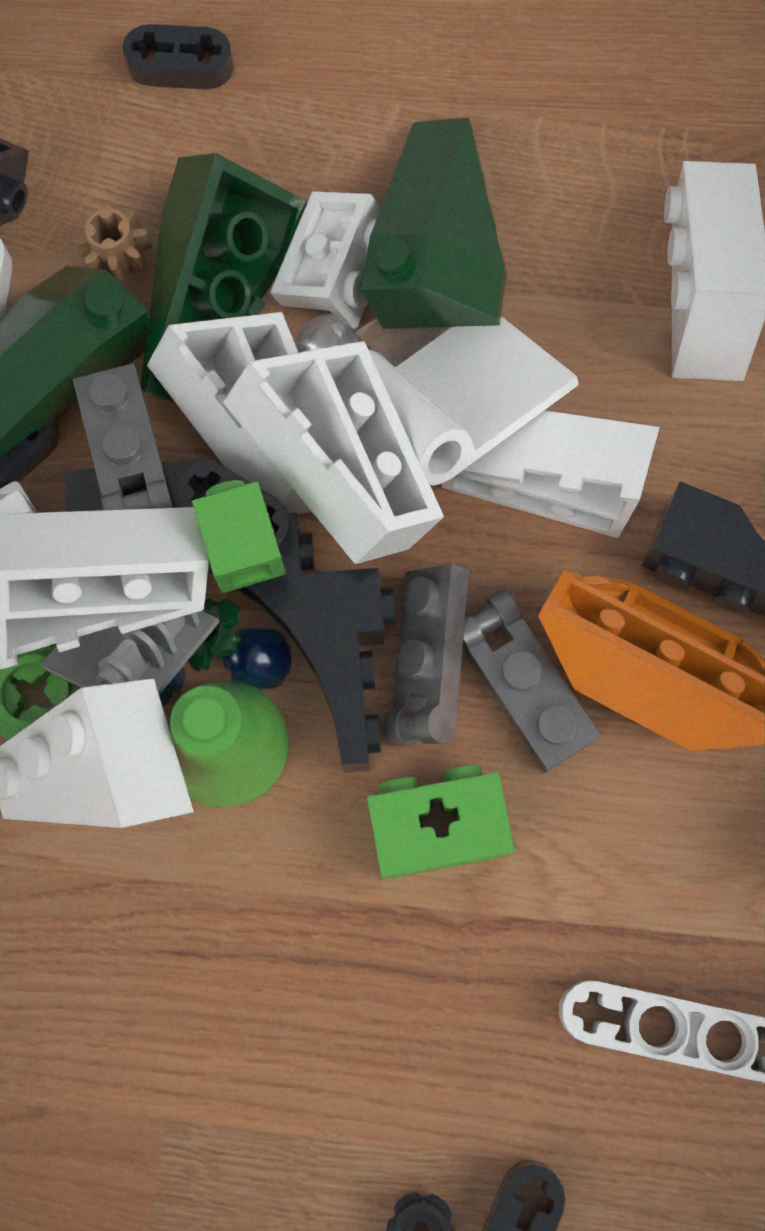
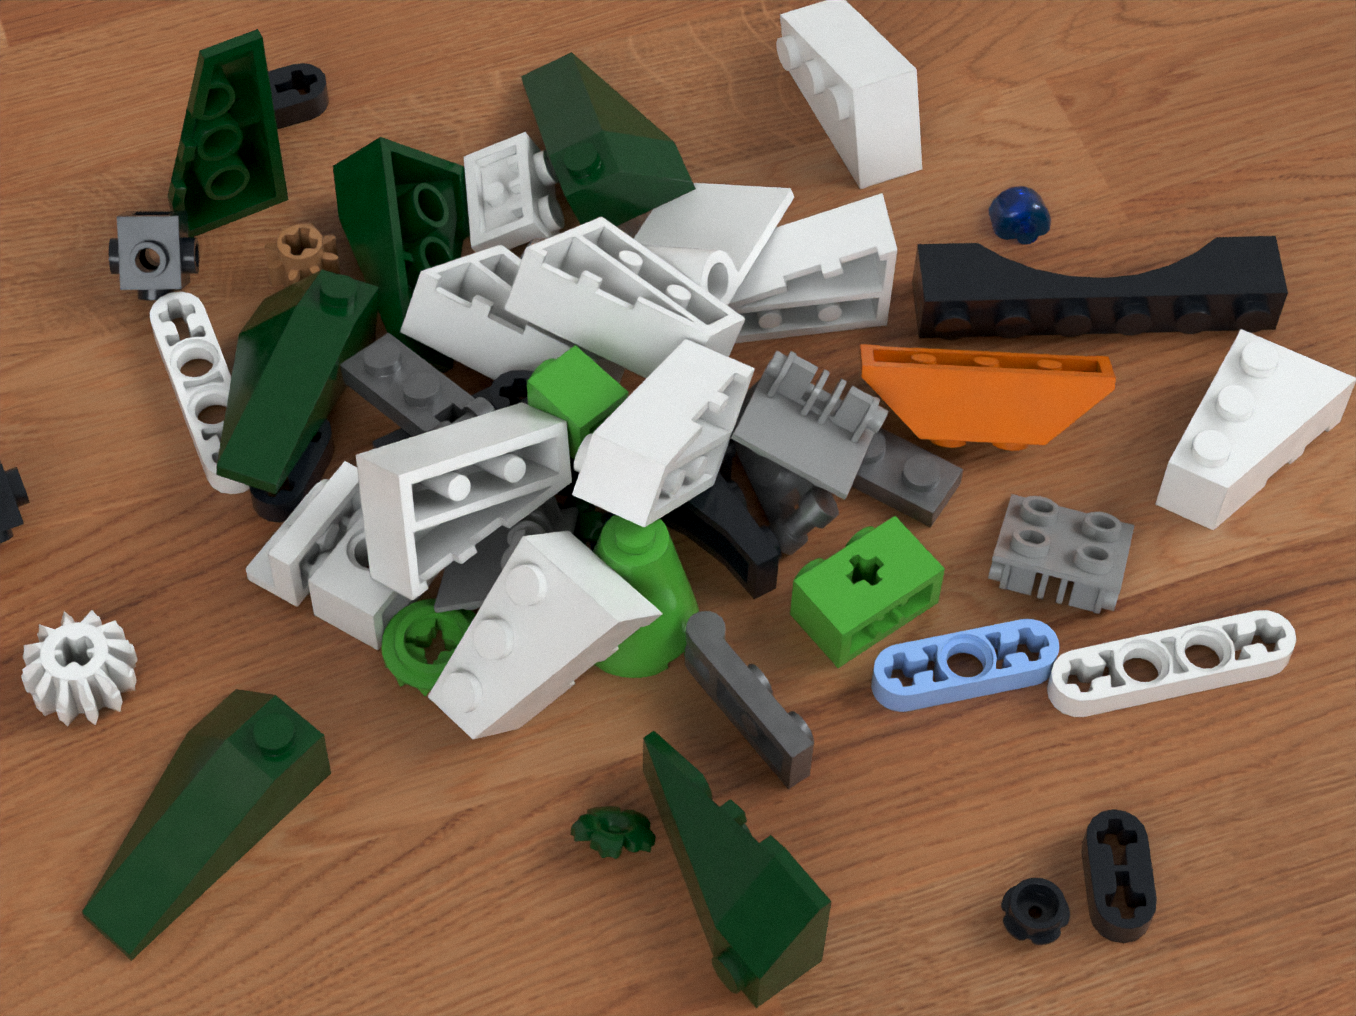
camera: 30 degrees left, 20 degrees down
(77, 94) = (229, 139): none -> dark green wedge
(90, 958) = (611, 830): none -> dark green plant
(157, 1104) = (750, 896): none -> dark green wedge
(272, 881) = (747, 699): none -> flat silver plate
(283, 626) = (664, 437): none -> white wedge
(459, 645) = (807, 426): none -> light grey hinge
(547, 935) = (949, 687): none -> light blue beam
(652, 865) = (1065, 545): none -> light grey hinge

